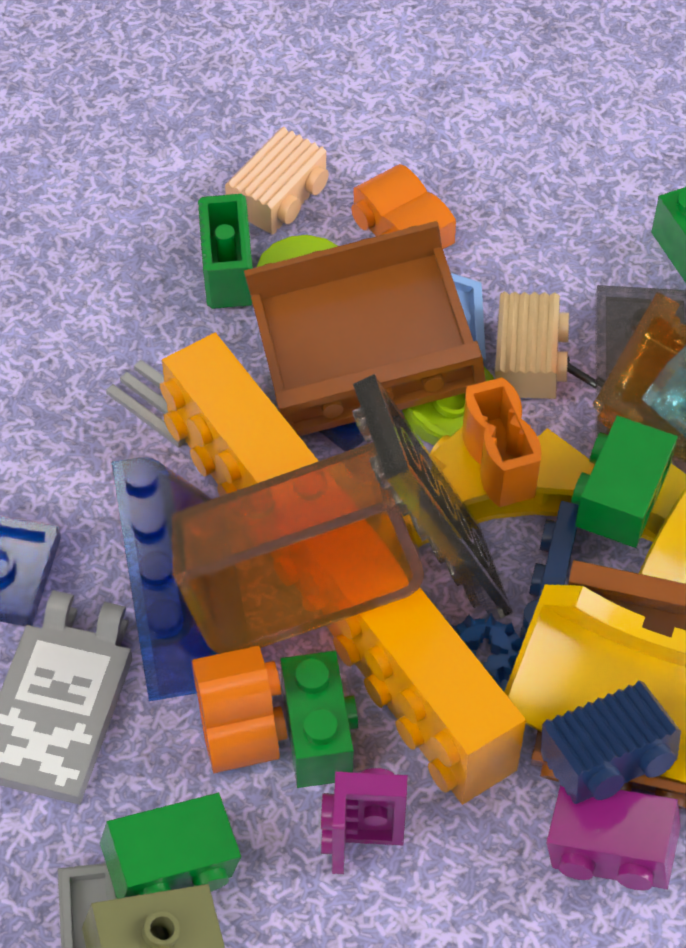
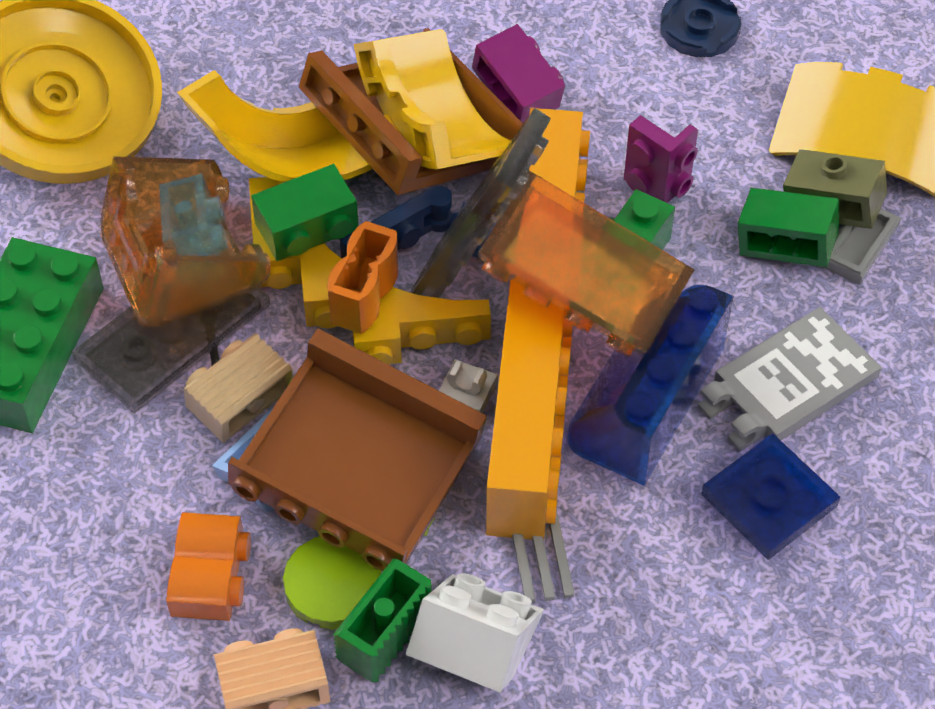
camera: 140 degrees left, 0 degrees up
(156, 302) = (474, 630): none -> white slope
(238, 708) = (693, 252): orange brick -> none
(610, 743) = (485, 84): dark blue brick -> none

